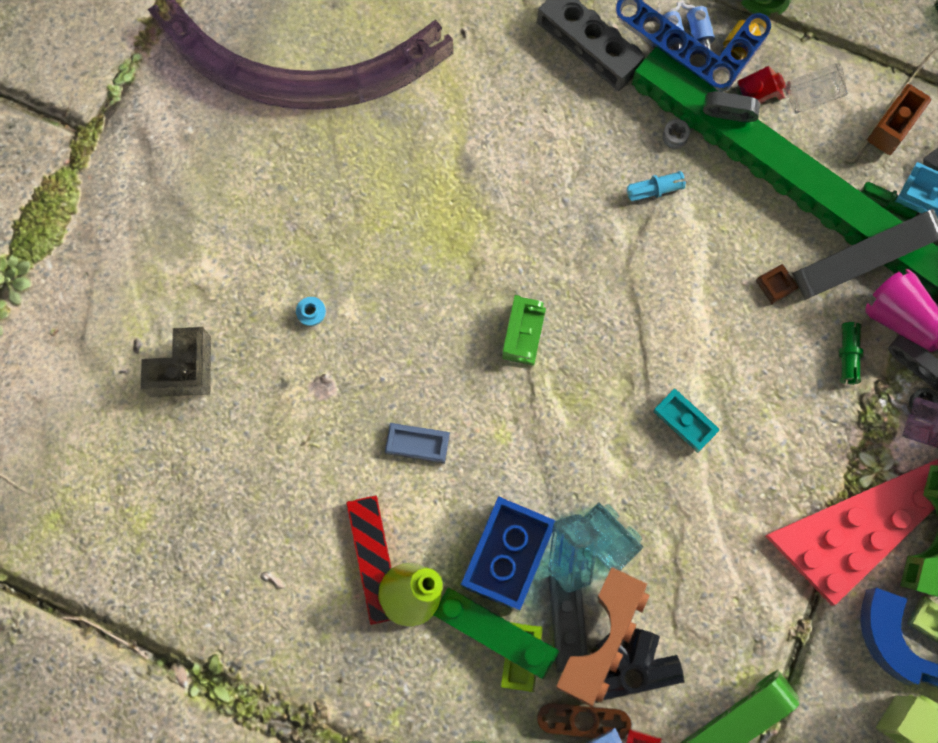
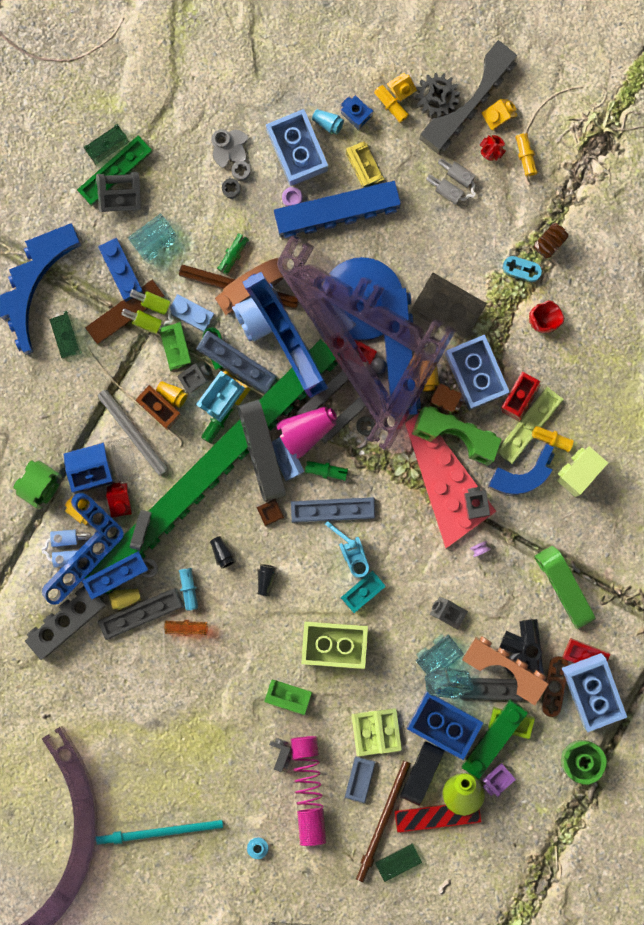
camera: 85 degrees left, 10 degrees up
(303, 508) = (398, 862): none -> clear green tile
(305, 464) = (368, 860): none -> reddish brown bar
(313, 134) = (118, 837): none -> teal bar
(353, 377) = (309, 820): none -> dark pink piece
(433, 644) = (498, 780): none -> medium lavender bracket
(434, 529) = (422, 773): none -> black beam
(437, 331) = (283, 758): none -> dark grey bracket
(487, 459) = (376, 732): none -> yellowish green slope
(602, 188) = (186, 627): none -> clear orange pin
(607, 384) = (334, 645): none -> yellowish green brick
(613, 131) = (140, 613): none -> dark grey tile
(631, 105) = (122, 598): none -> light yellow cone
(665, 82) = (115, 575): none -> blue plate
(673, 547) = (448, 612): none -> dark grey bracket
(684, 285) = (266, 579): none -> black cone
(710, 225) = (222, 553): none -> black cone
(736, 402) = (355, 556): none -> medium azure piece
(757, 393) = (352, 543): none -> medium azure hinge
(775, 585) = (480, 548): none -> lavender bush
(795, 369) = (333, 509): none -> sand blue tile
(797, 44) = (88, 468): none -> blue slope
(854, 97) = (132, 432): none -> light grey axle
(856, 296) = (288, 463): none -> light blue plate
(858, 564) = (480, 511): none -> dark grey brick
(918, 140) = (174, 395): none -> yellow cone

